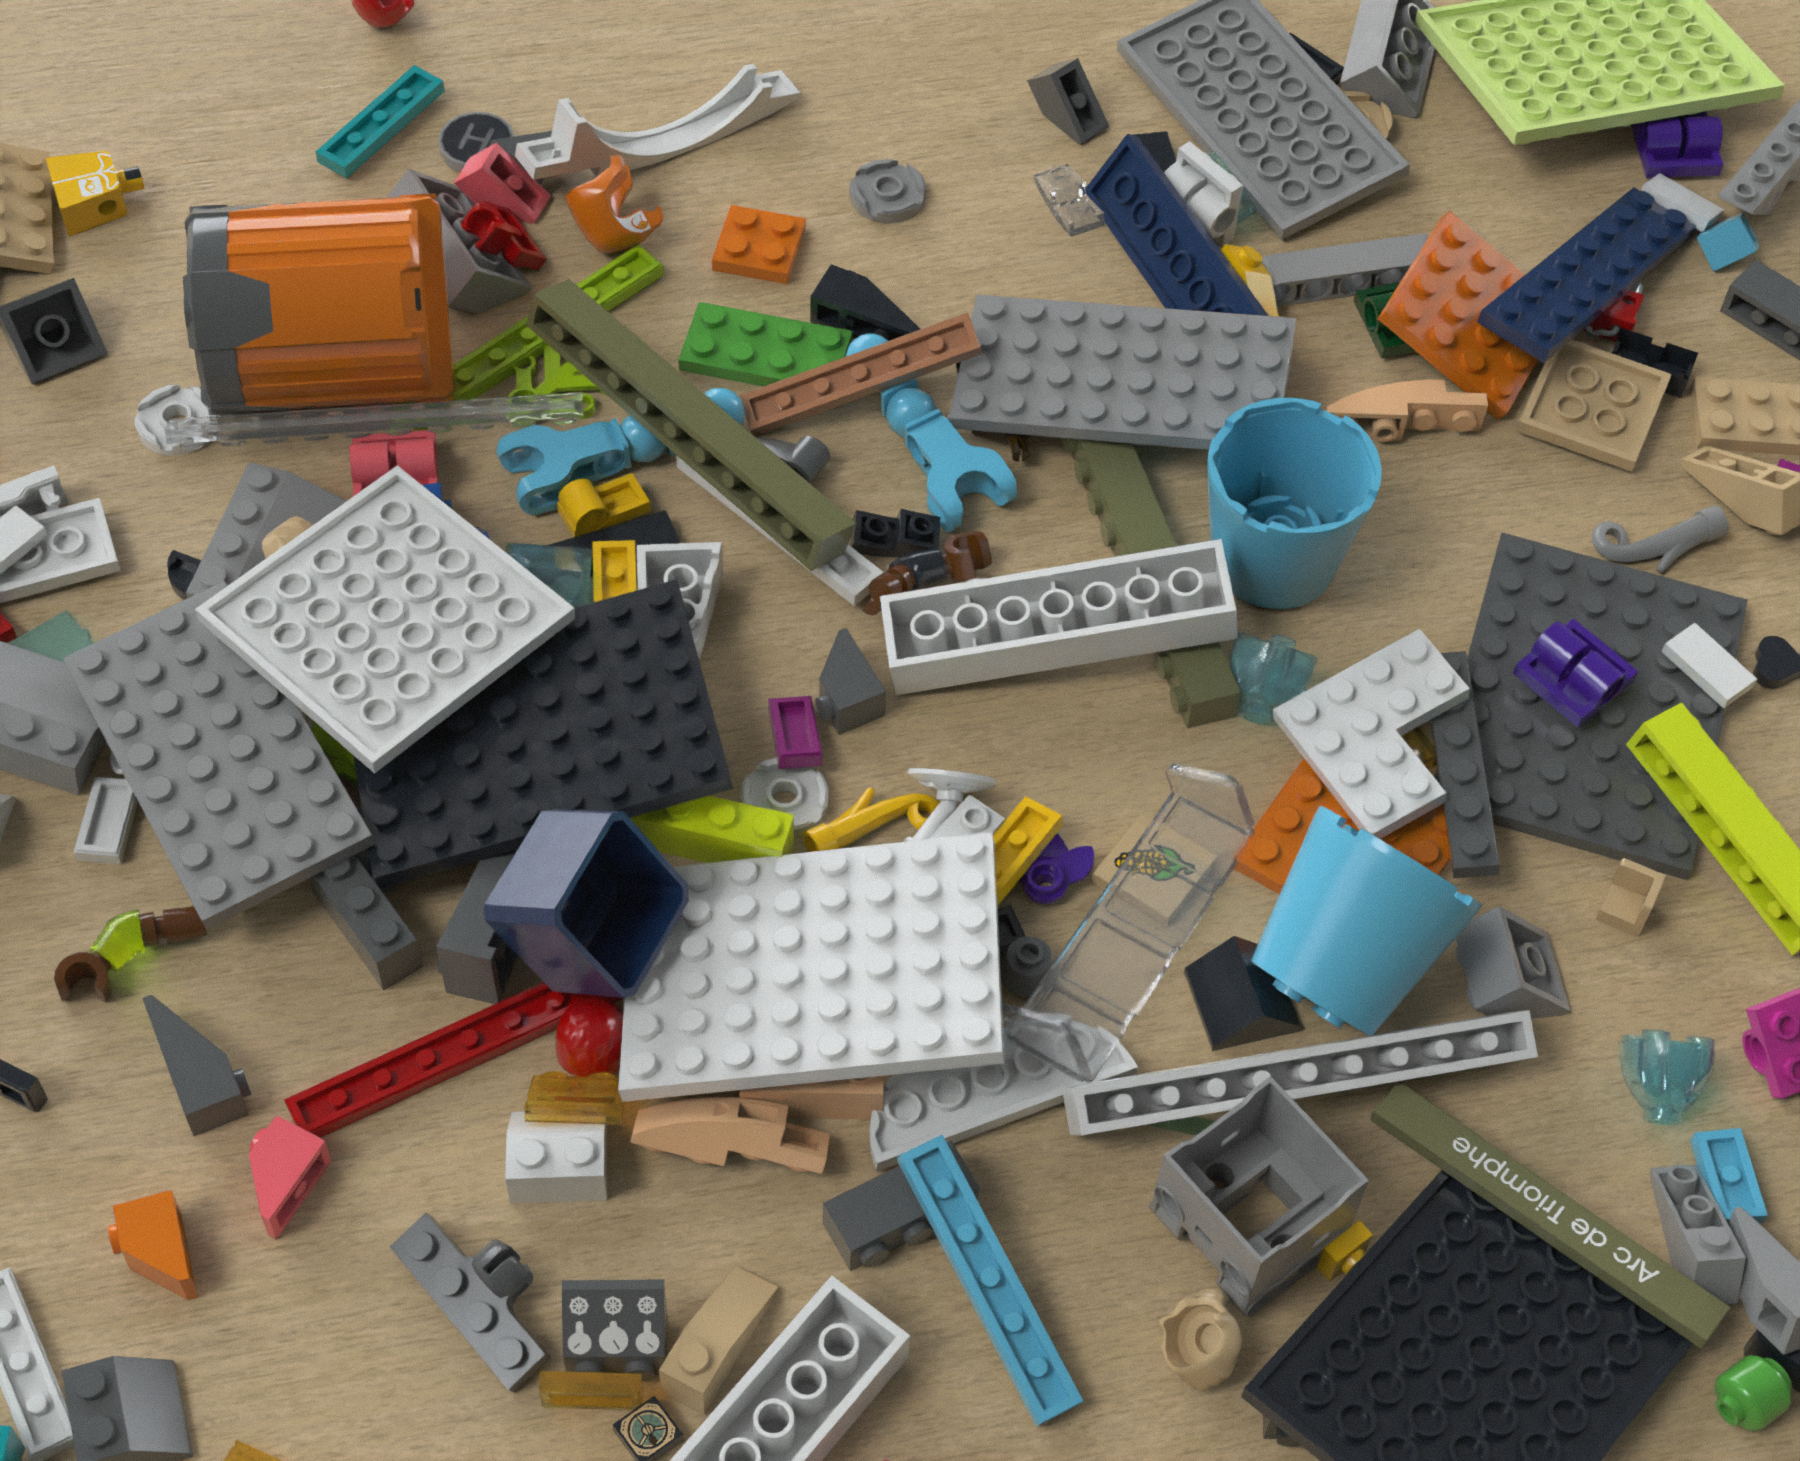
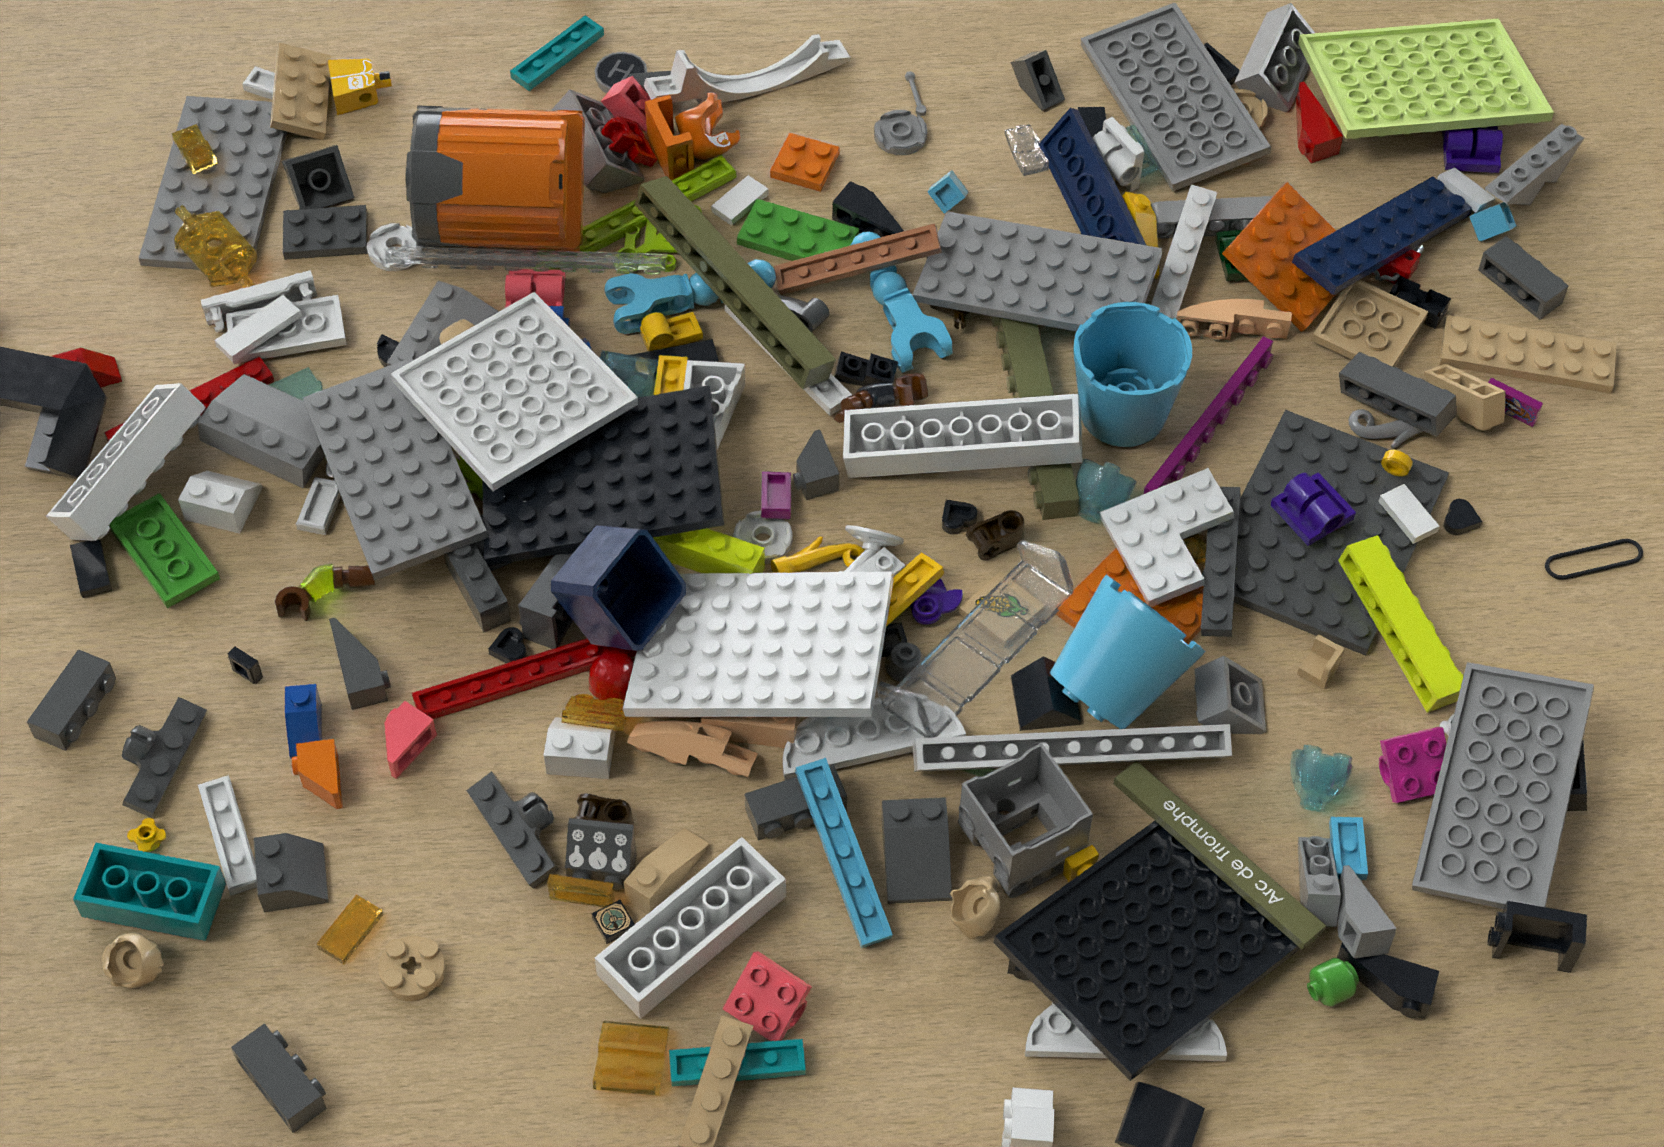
camera: 10 degrees right, 0 degrees up
(69, 407) = (325, 232): none -> dark grey plate
(117, 1158) = (302, 715): none -> blue slope
(425, 1007) = (508, 645): none -> black tile
(569, 246) = (672, 152): none -> orange panel
(603, 1257) = (603, 809): none -> dark brown piece
(673, 306) = (739, 200): none -> white tile
(910, 157) = (920, 109): none -> light grey hinge
(970, 267) = (948, 191): none -> medium azure panel
(1065, 735) = (957, 516): none -> black tile
(1095, 1260) = (916, 850): none -> dark grey slope
(1123, 762) = (993, 536): none -> dark brown piece
(1319, 315) = (1184, 250): none -> white plate
(1407, 548) = (1215, 414): none -> magenta plate
(1461, 137) = (1316, 131): none -> red slope
(1658, 494) = (1398, 394): none -> dark grey brick
(1678, 593) = (1396, 463): none -> yellow tile

